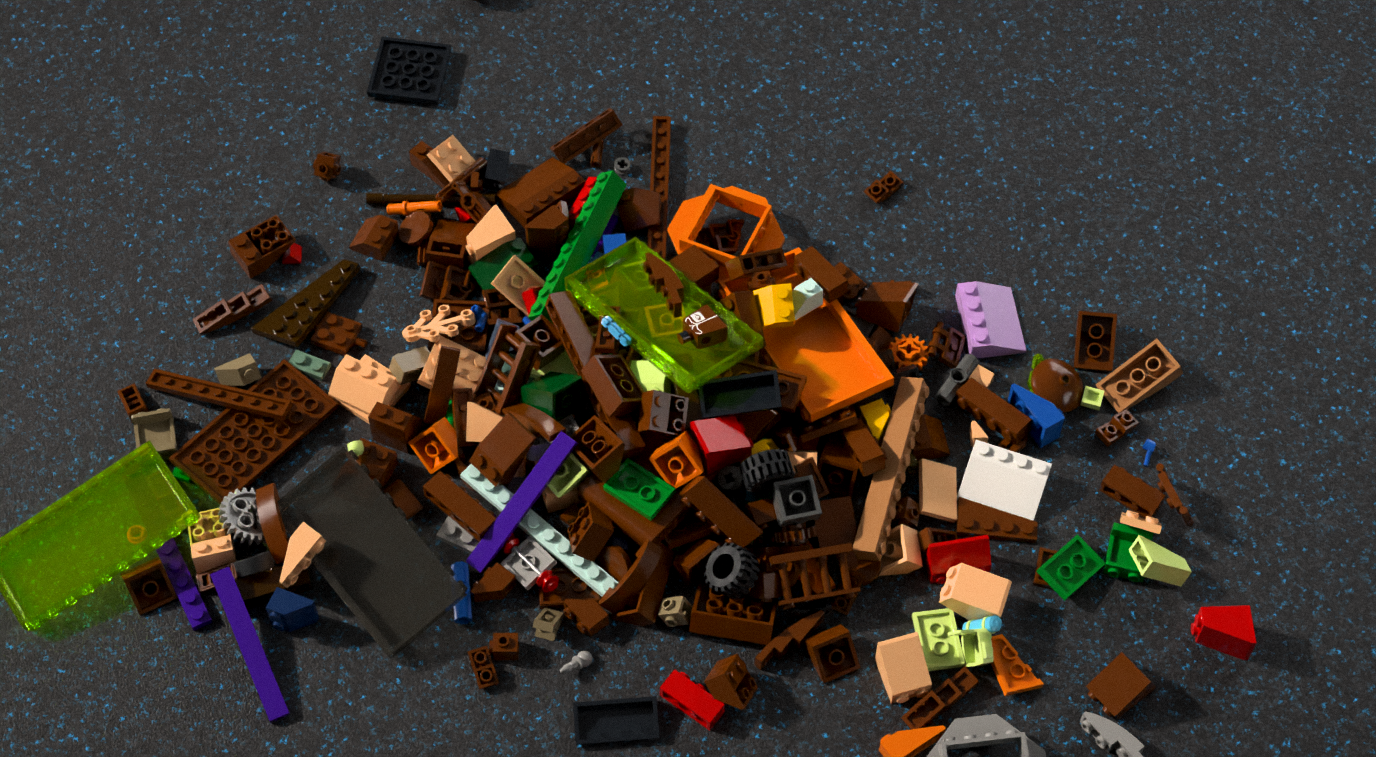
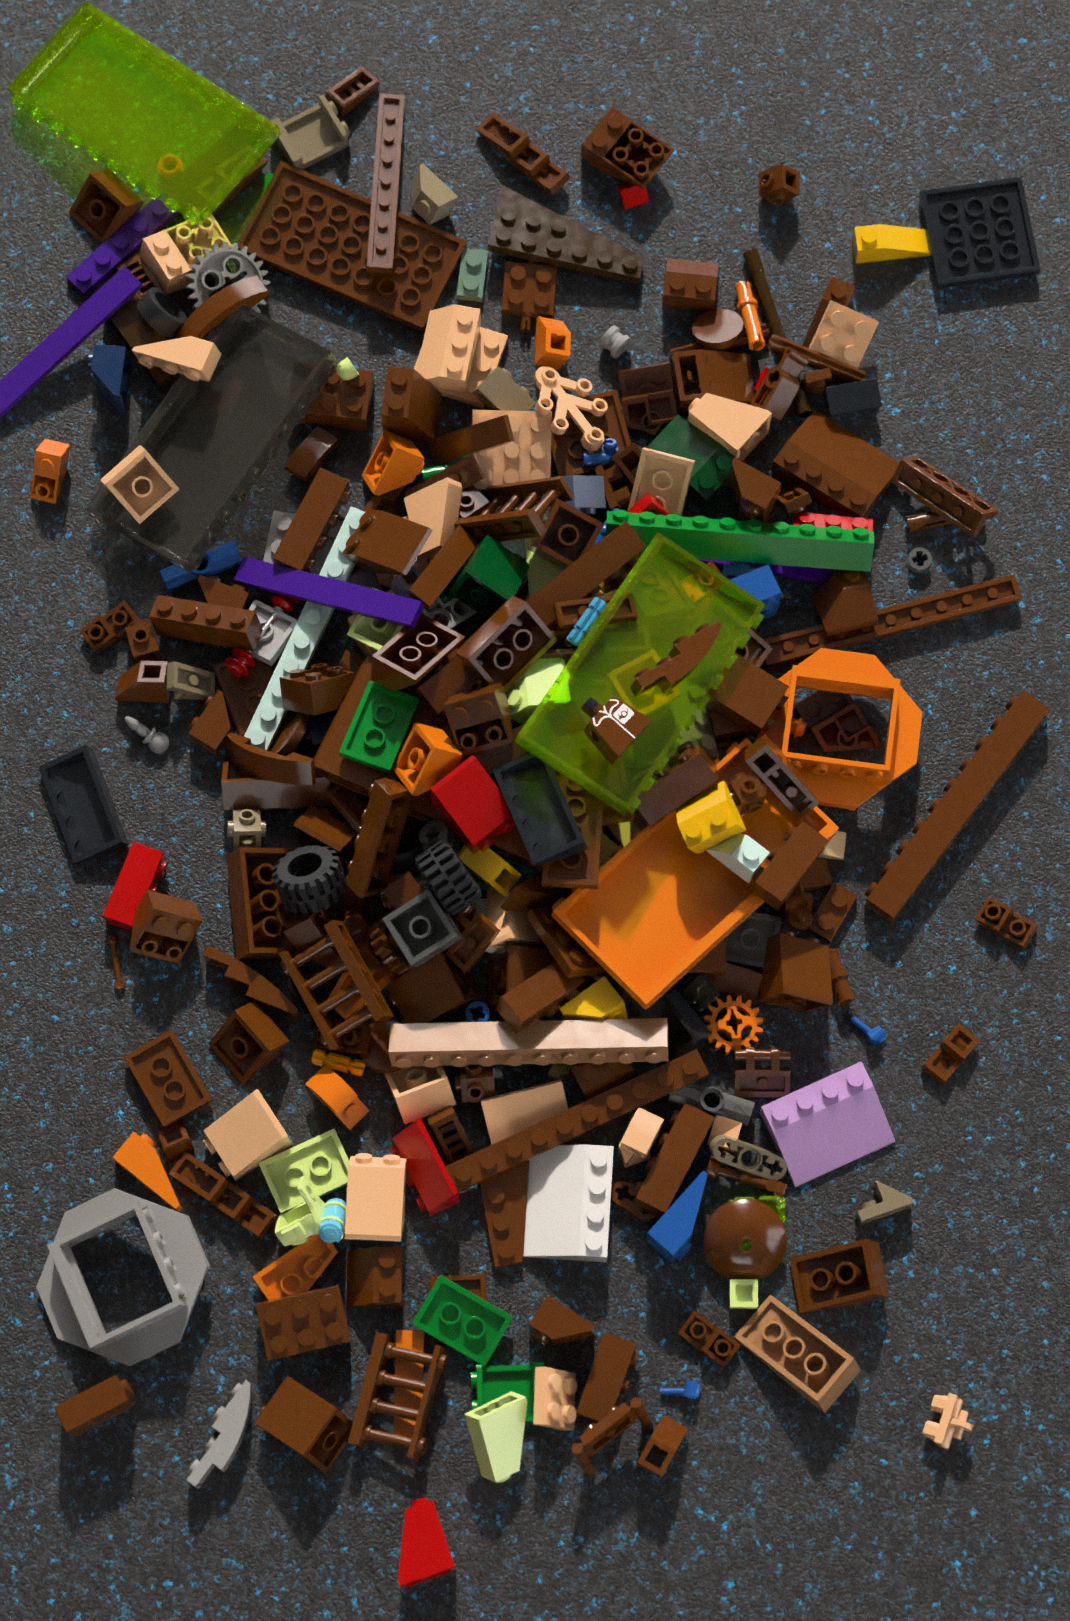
camera: 75 degrees right, 15 degrees up
(344, 676) = (49, 470): none -> orange slope
(384, 326) = (552, 343): none -> orange slope
(387, 606) = (139, 484): none -> light nougat slope
(395, 121) = (888, 243): none -> yellow slope
(398, 291) = (614, 341): none -> light grey wheel
(510, 594) = (206, 623): none -> reddish brown brick
(538, 651) = (144, 683): none -> reddish brown slope
(760, 731) = (119, 984): none -> reddish brown hinge
(799, 191) = (956, 807): none -> reddish brown brick
(843, 714) = (168, 1078): none -> reddish brown plate
(857, 503) = (474, 1008): none -> blue bush
(863, 600) = (338, 1062): none -> light orange axle
(888, 603) = (337, 1096): none -> orange brick
(889, 722) = (175, 1141): none -> reddish brown slope
(937, 280) = (874, 1036): none -> blue hand
(950, 454) = (577, 1120): none -> reddish brown plate
(961, 242) = (950, 1054): none -> reddish brown slope
(972, 419) = (641, 1133): none -> light nougat brick
(1003, 390) = (743, 1177): none -> reddish brown piece
(1008, 365) = (733, 1144): none -> dark tan beam
(1026, 615) = (375, 1277): none -> reddish brown slope
(1049, 667) = (303, 1322): none -> reddish brown brick
(1052, 300) = (890, 1203): none -> dark tan slope
(1089, 507) = (558, 1325): none -> reddish brown slope
(1108, 616) = (413, 1341): none -> orange tile
(1116, 641) = (378, 1377): none -> reddish brown fence
(1187, 471) = (661, 1447): none -> reddish brown slope
(1210, 312) = (952, 1420): none -> light nougat hips

